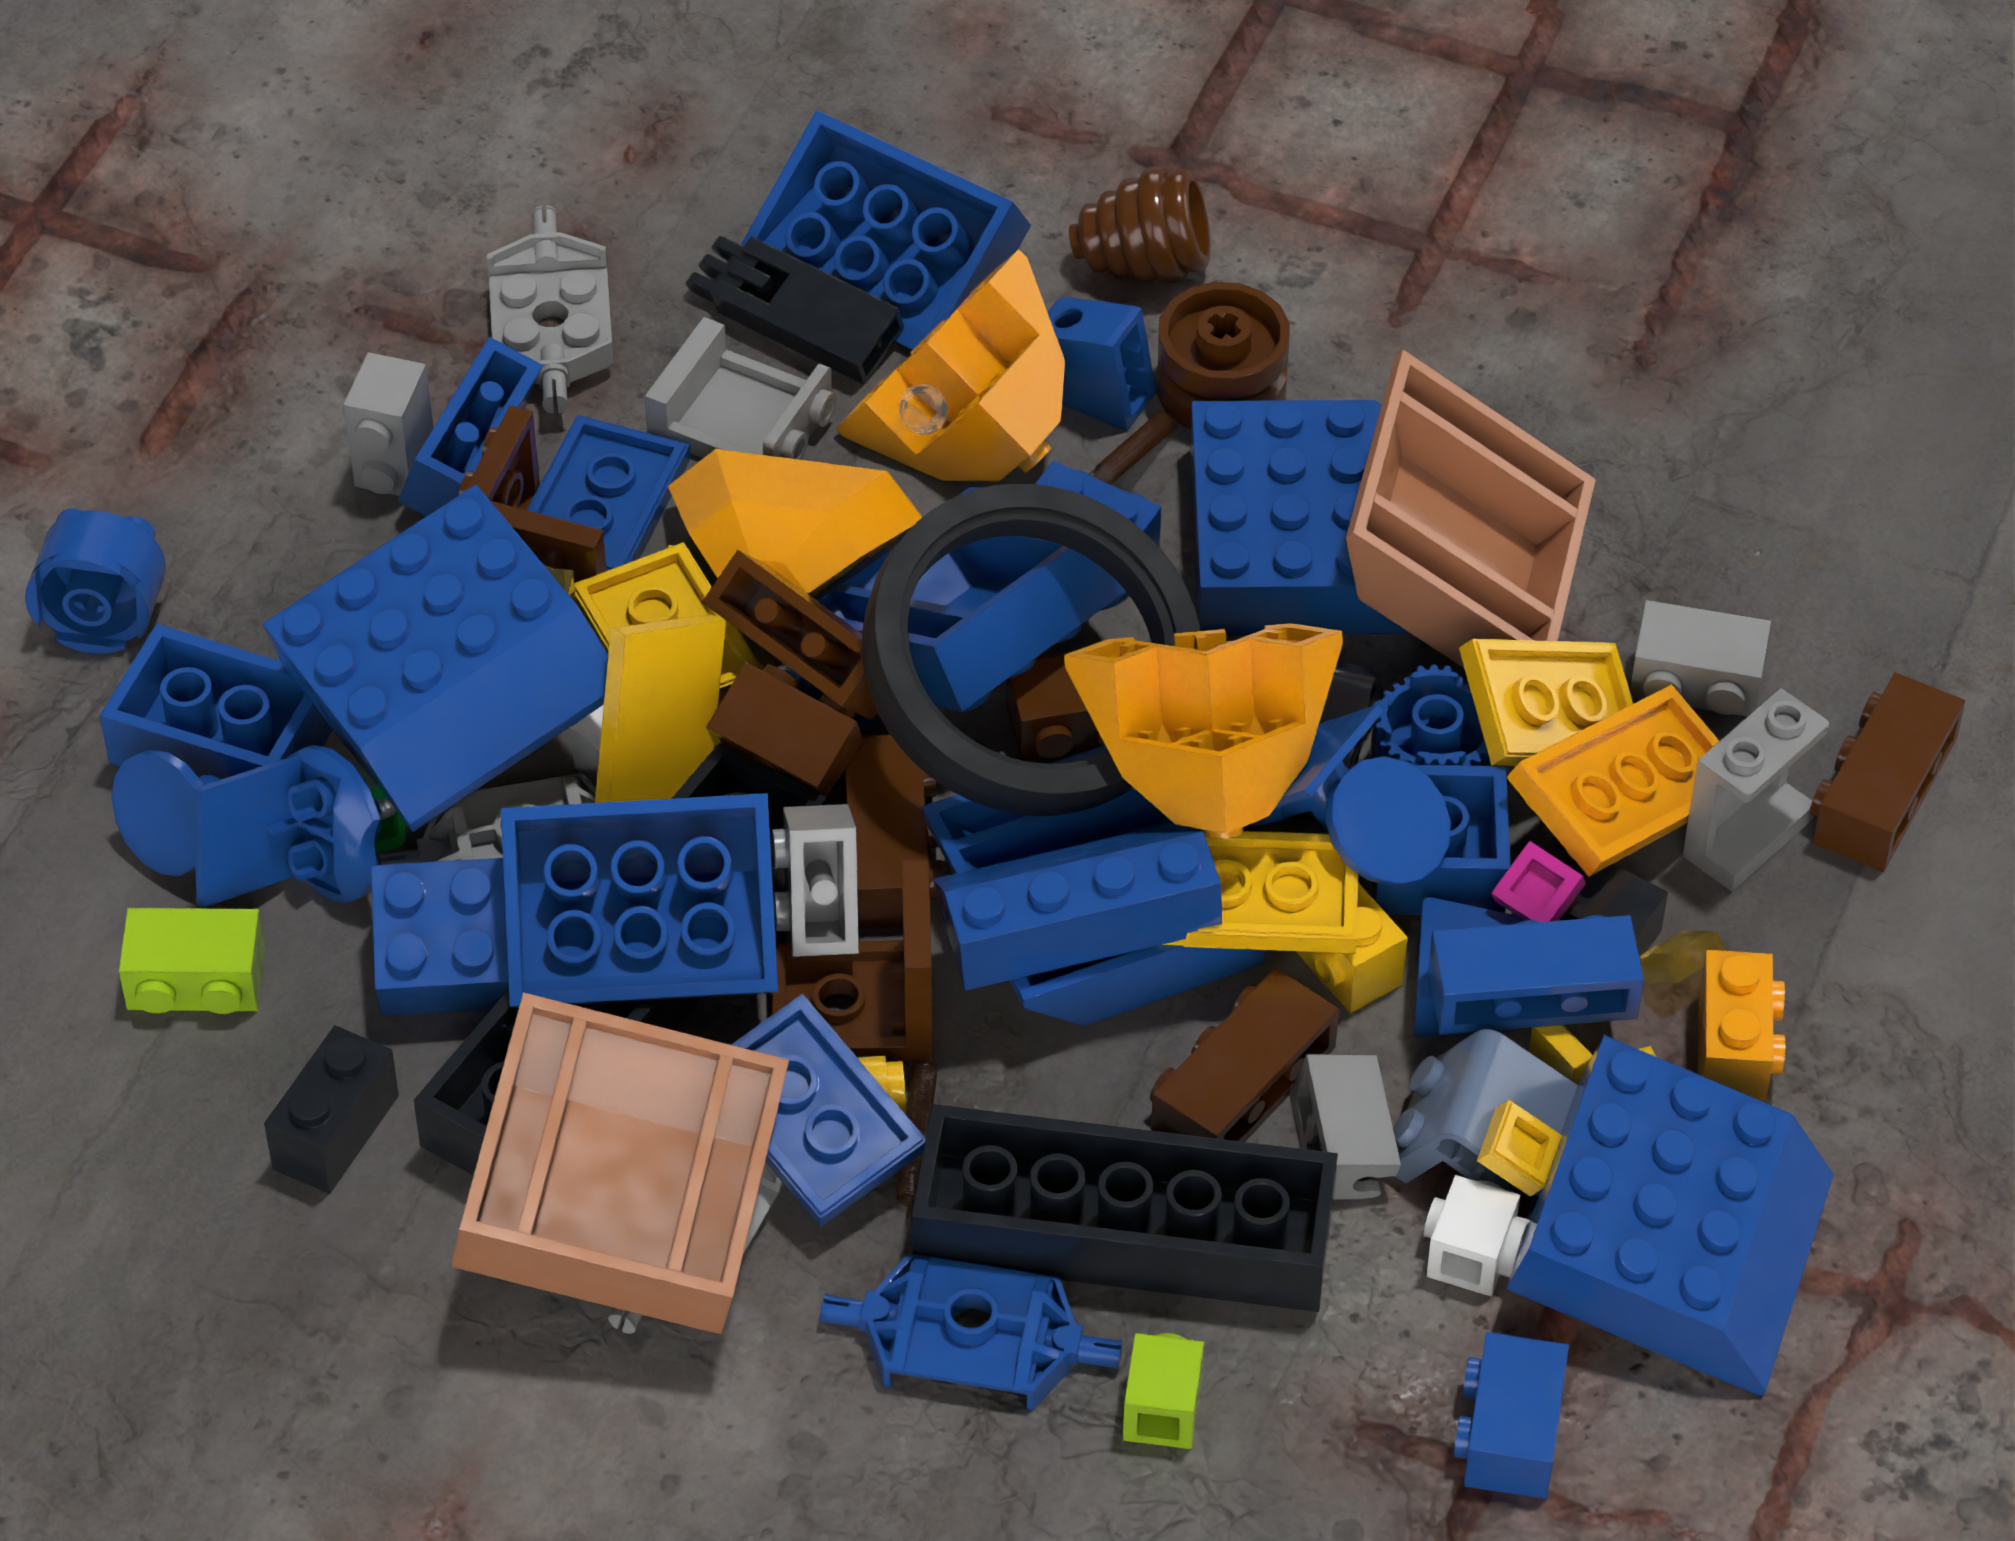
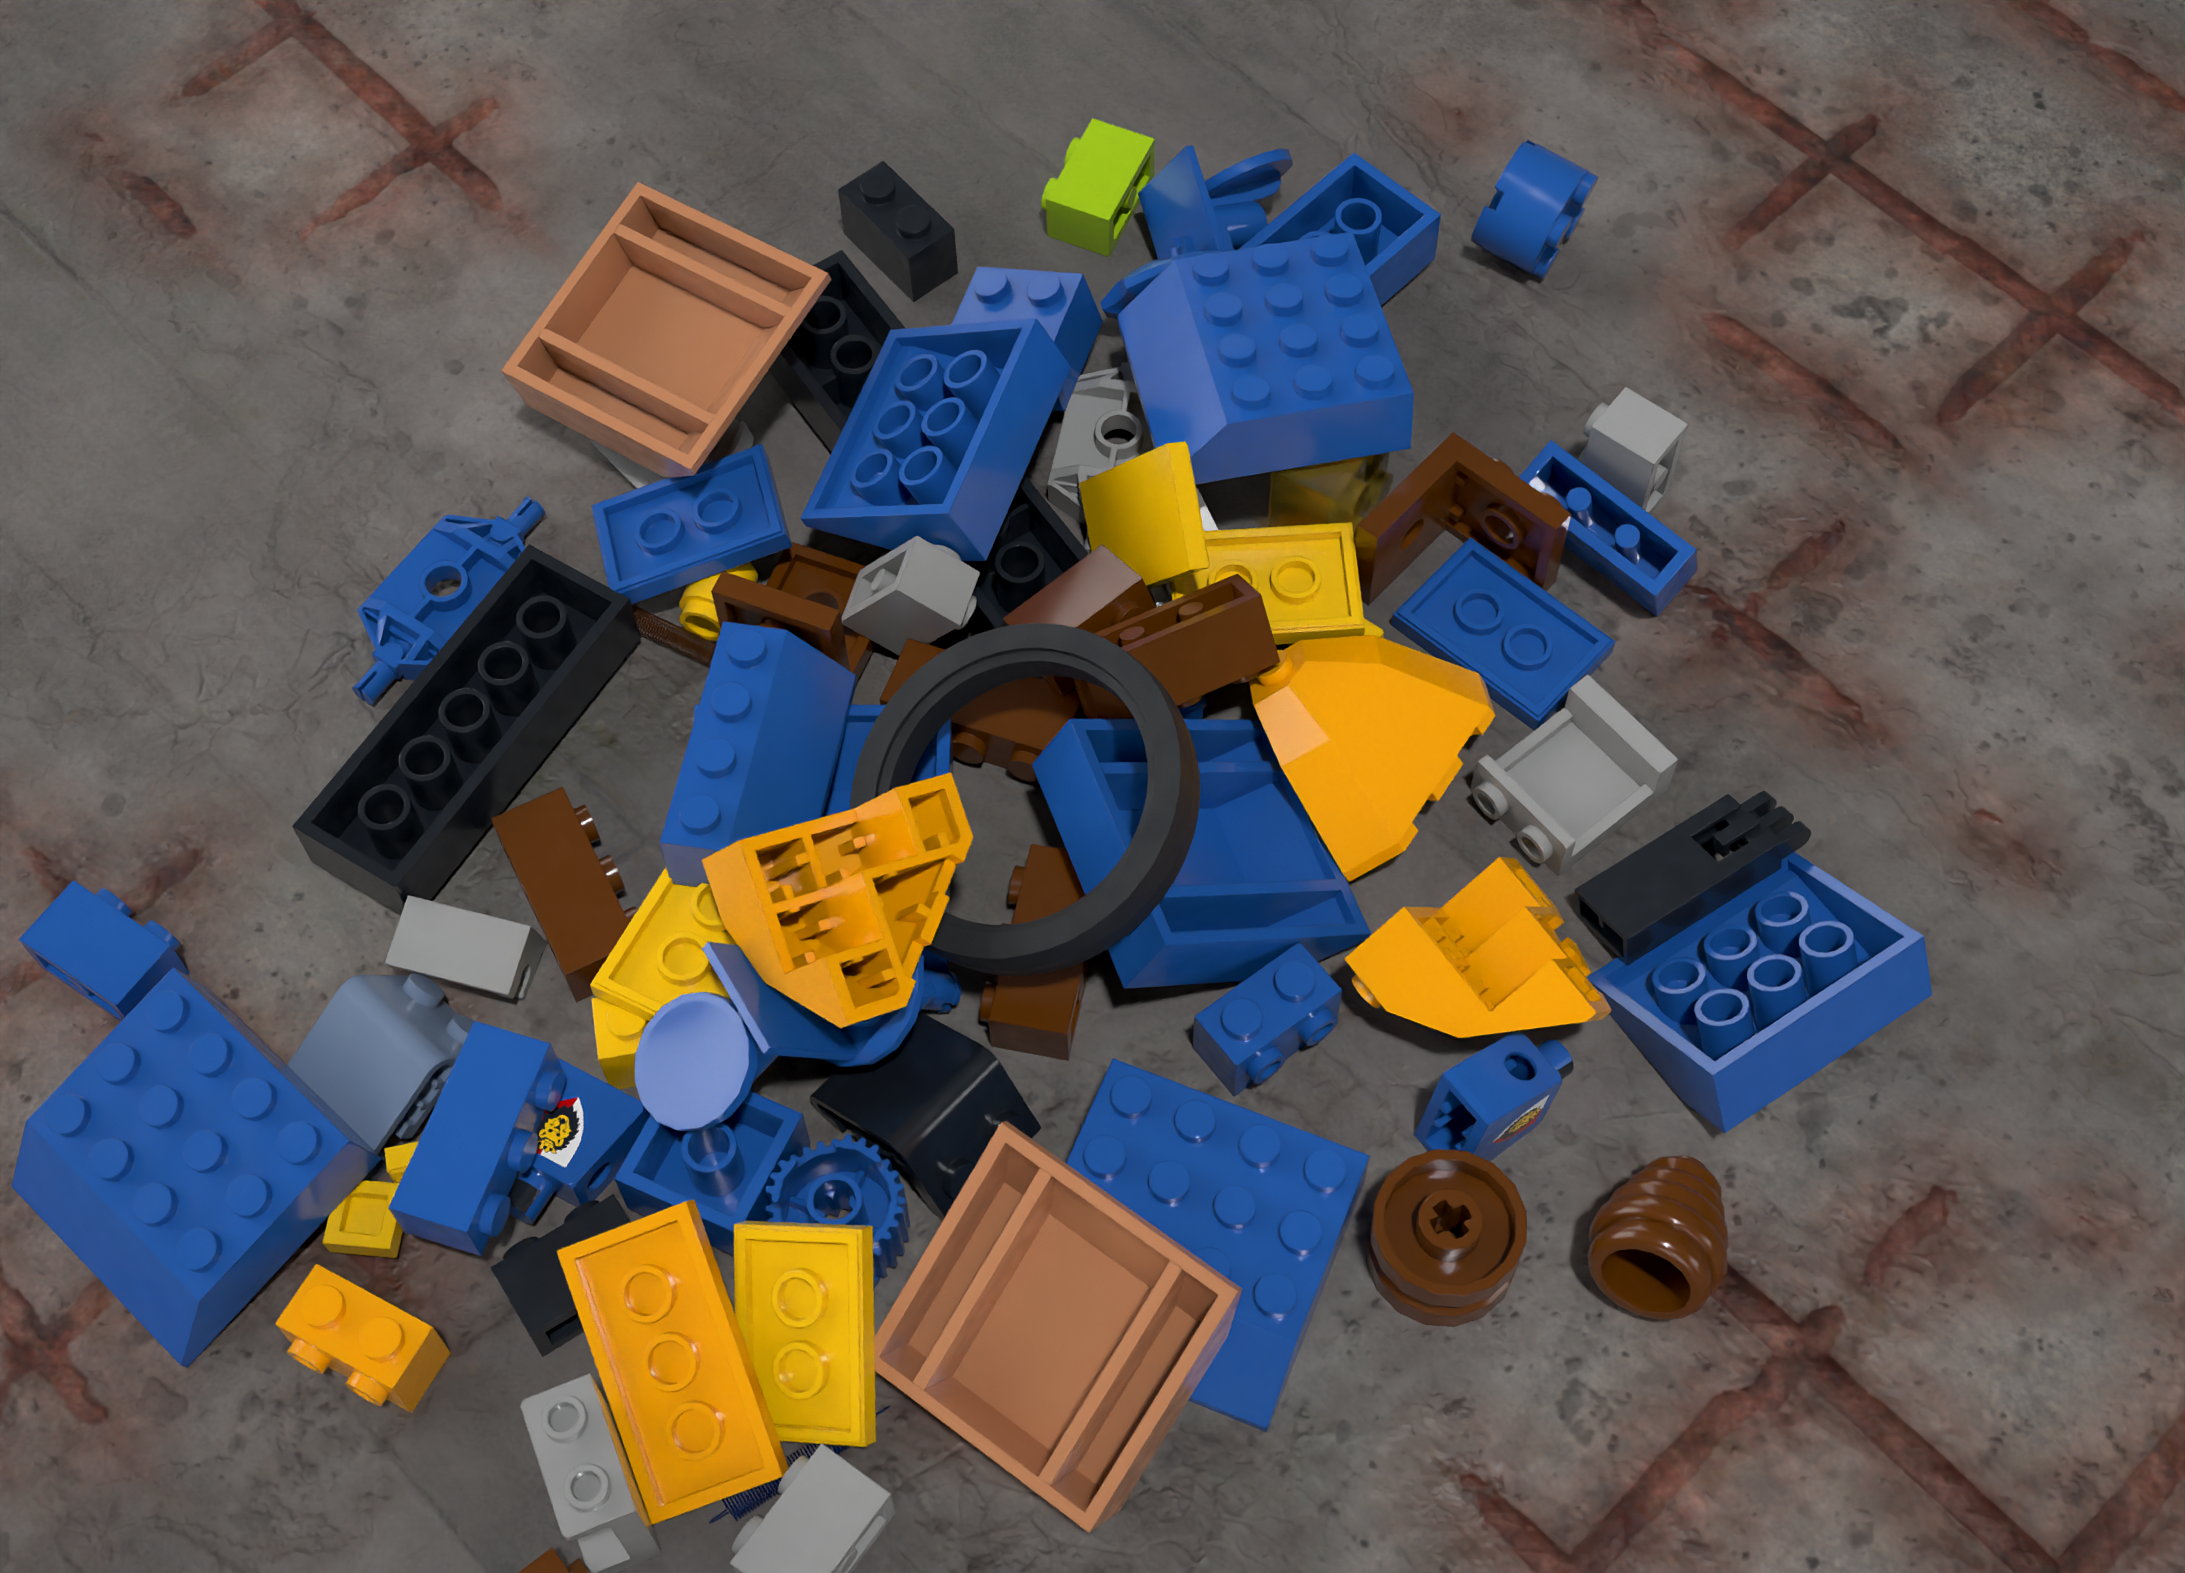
camera: 115 degrees right, 10 degrees up
(560, 279) = (1811, 659): light grey plate -> none
(913, 417) = (1476, 910): clear hinge -> none
(1125, 446) = (1400, 1152): reddish brown piece -> none
(1163, 1390) = (298, 701): lime brick -> none
(1474, 1235) = (285, 999): white brick -> none
(1519, 1148) = (314, 1044): yellow tile -> none
(1538, 886) = (578, 1194): dark pink plate -> none
(1679, 956) = (476, 1334): clear yellow tile -> none

